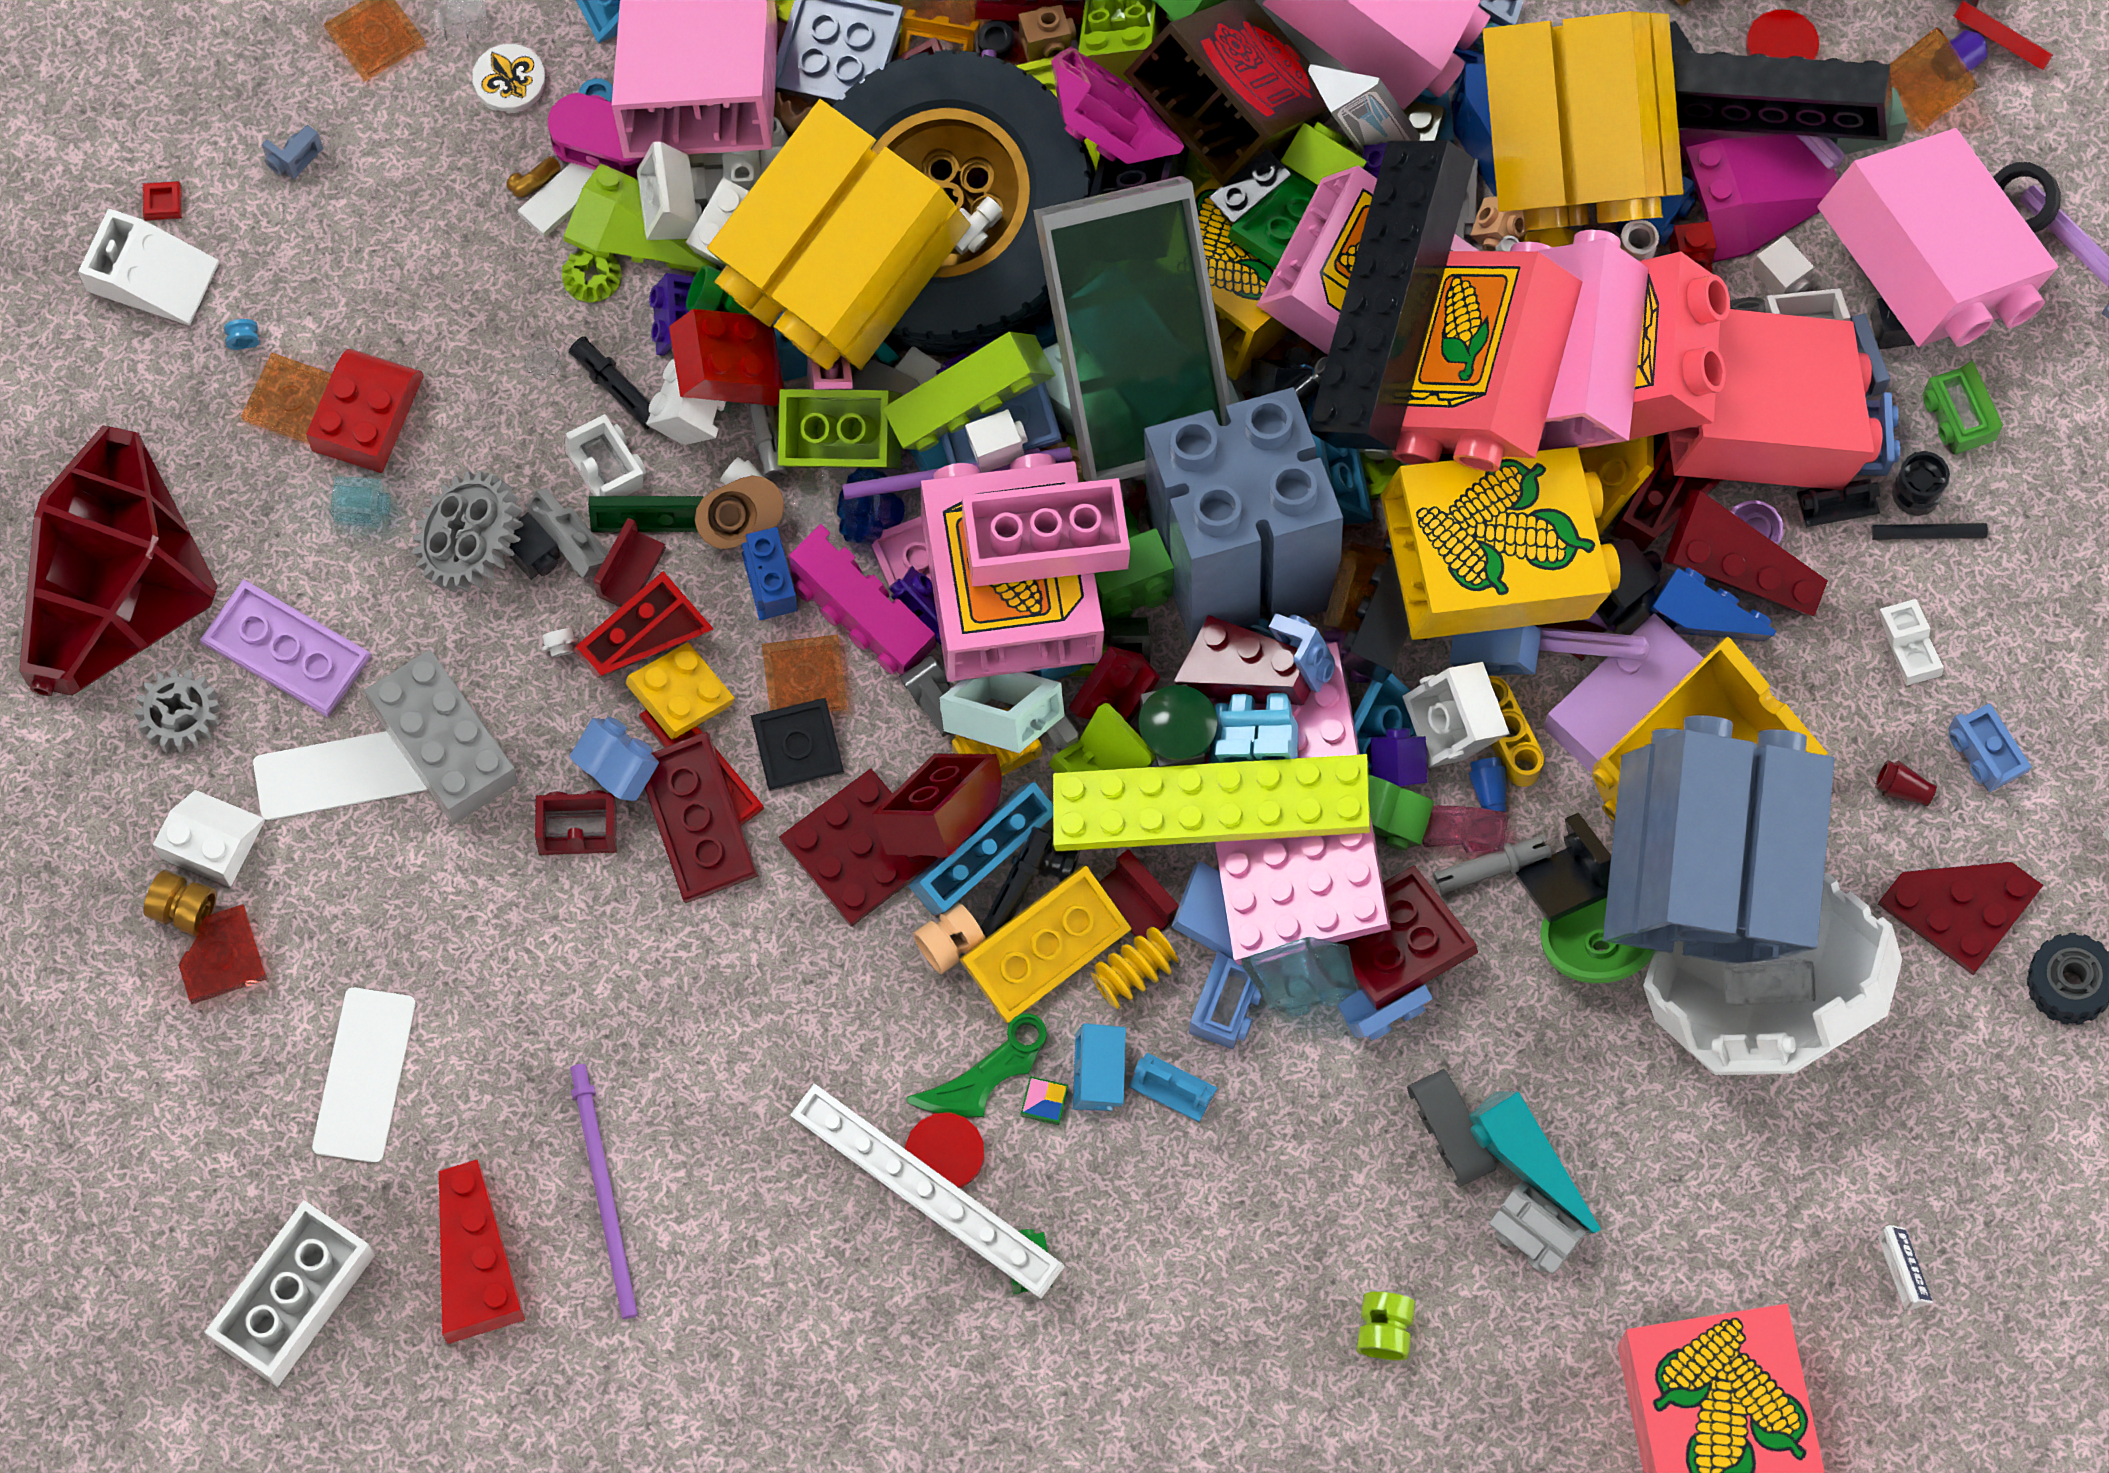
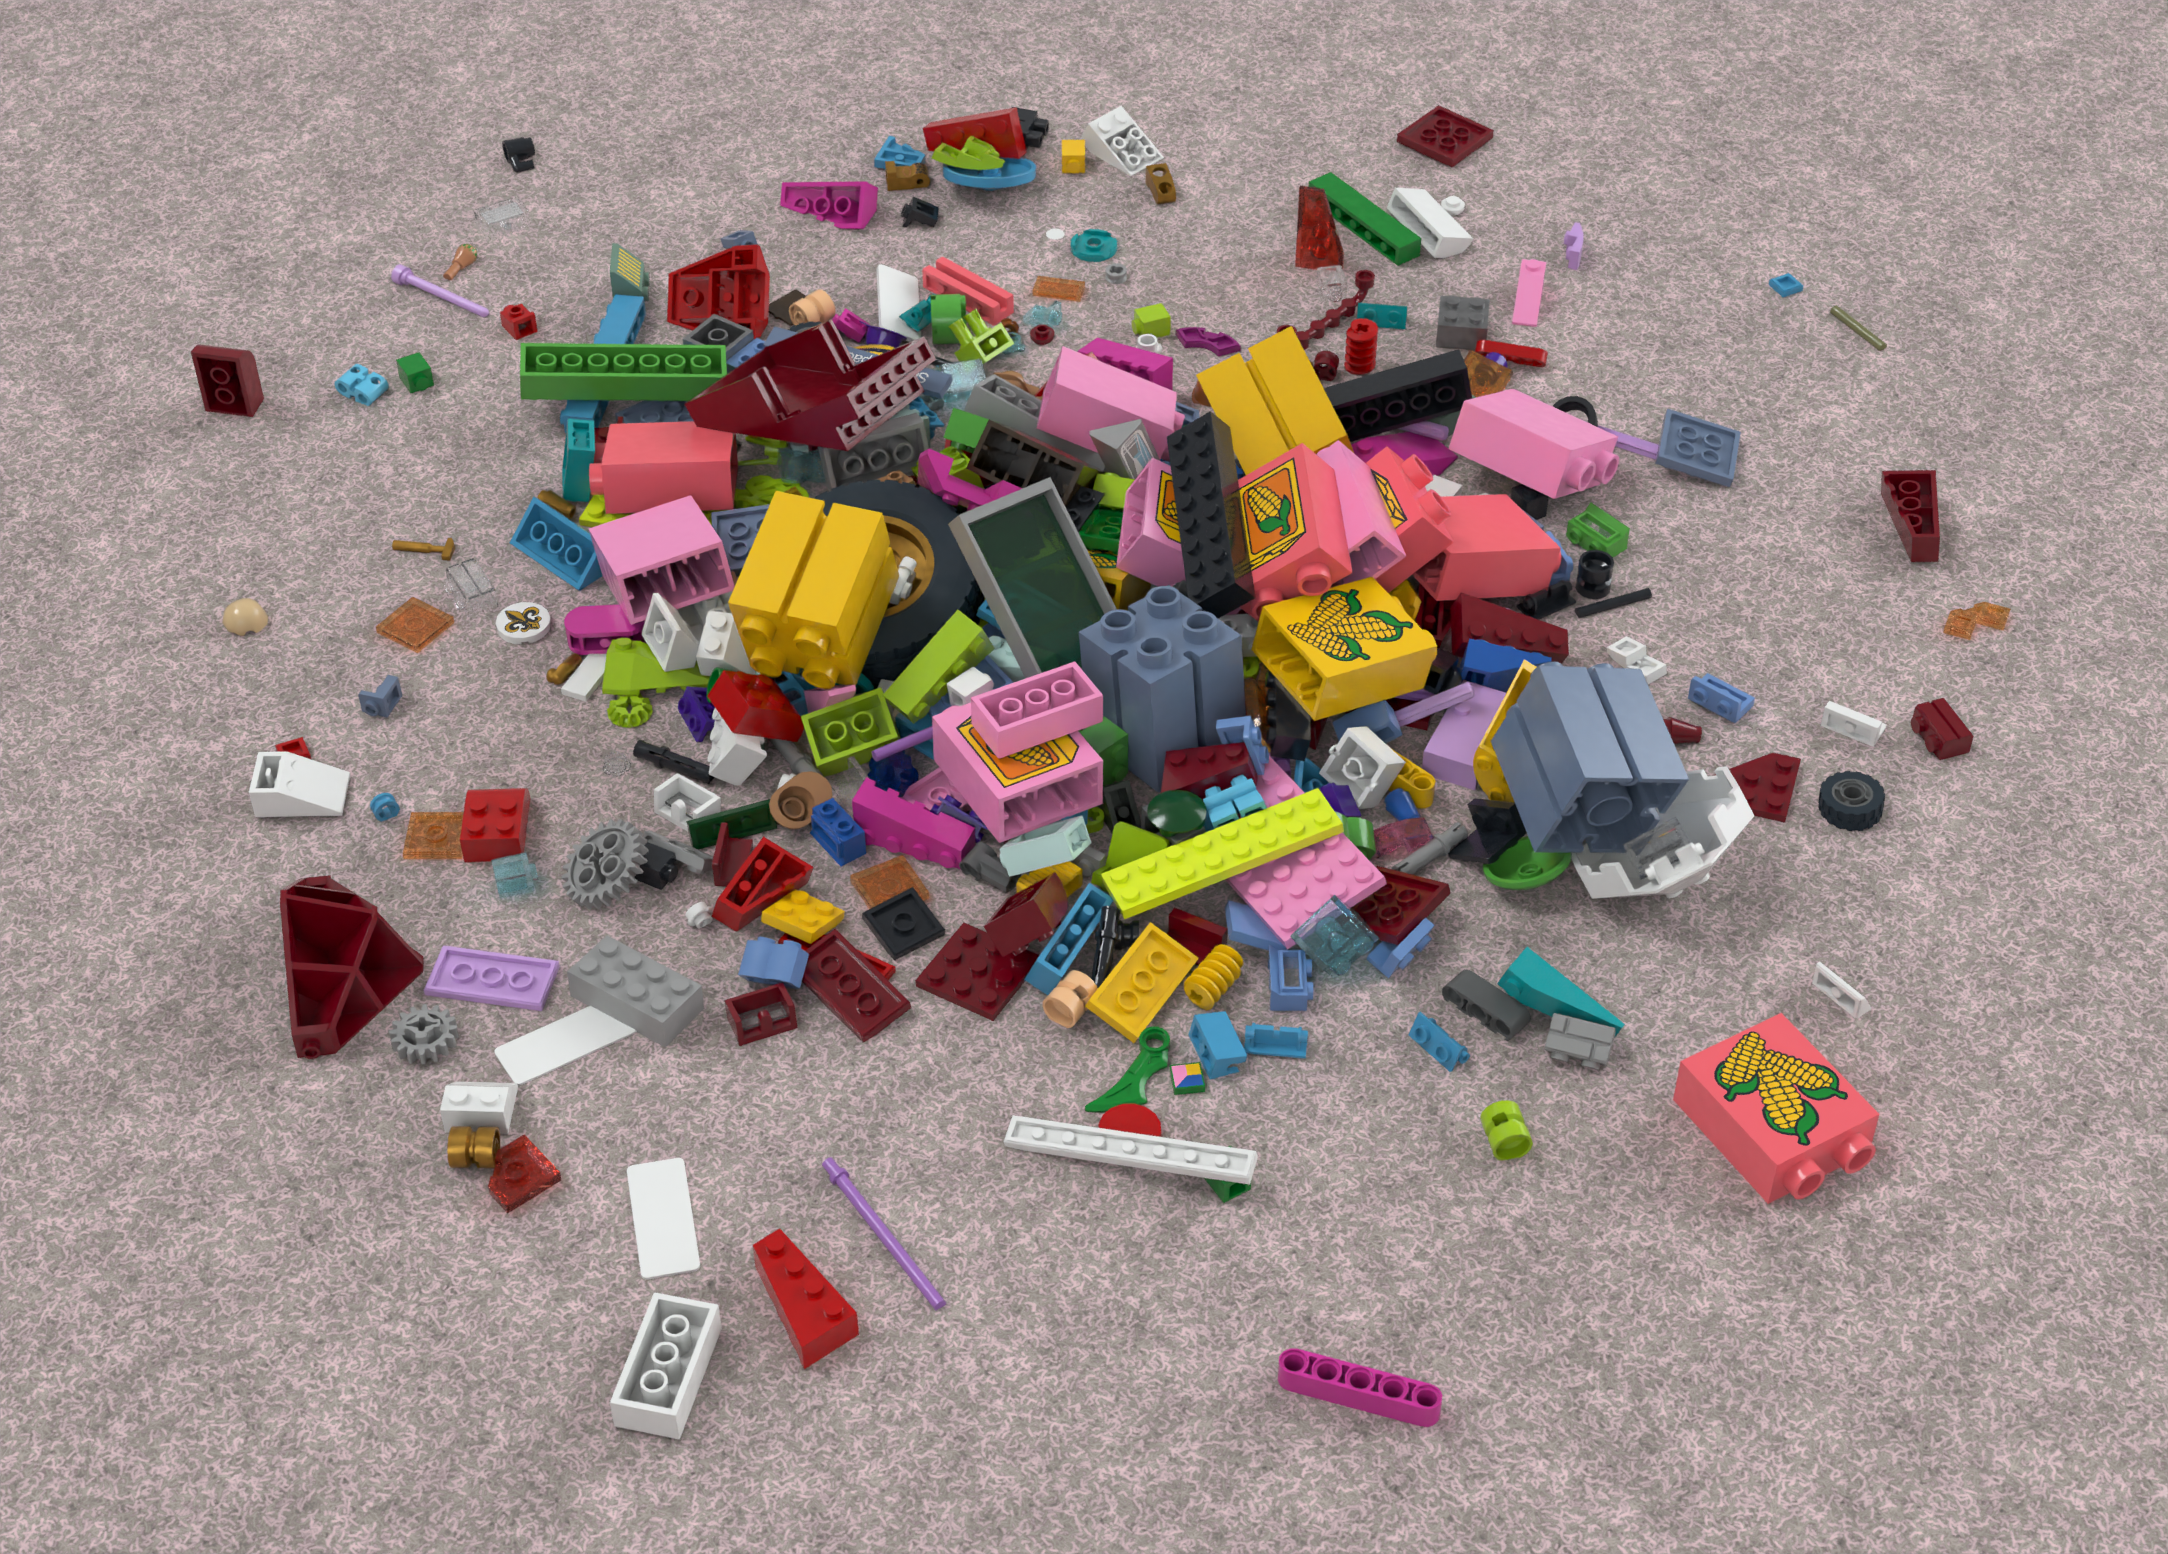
camera: 20 degrees left, 25 degrees down
(1118, 681) = (1116, 808): dark red bracket -> none
(1362, 1144) = (1437, 1042): none -> dark azure hinge

